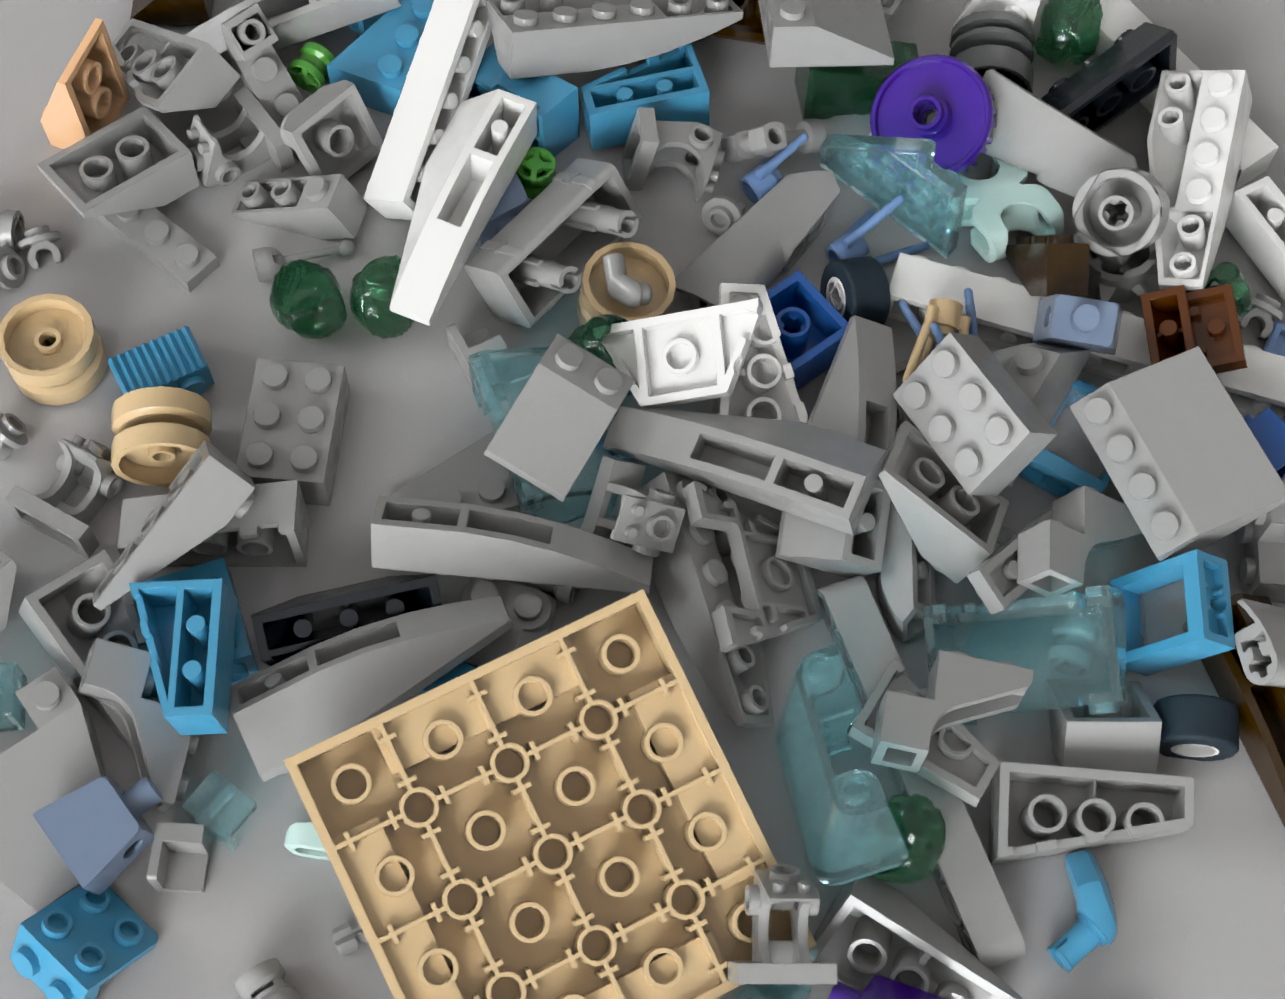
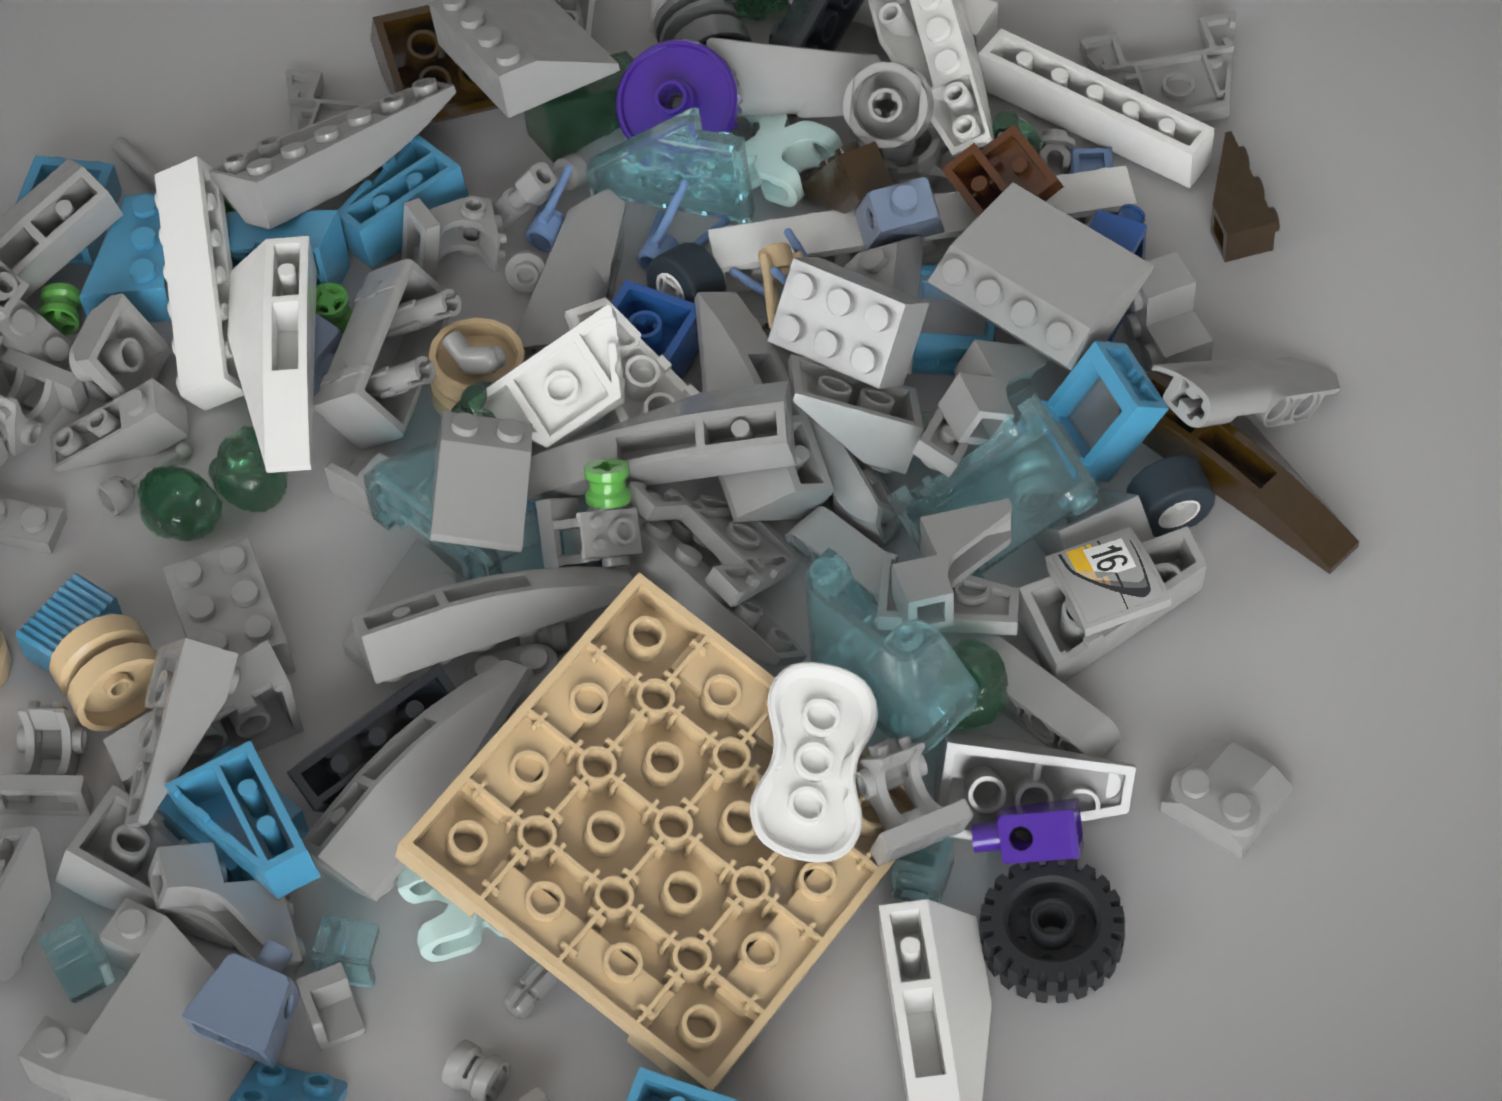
camera: 20 degrees left, 10 degrees down
(668, 475) = (607, 483): none -> bright green wheel
(690, 889) = (809, 791): none -> white plate
(1088, 801) = (1108, 581): none -> light grey slope
(1095, 911) = (1162, 677): dark azure arm -> none

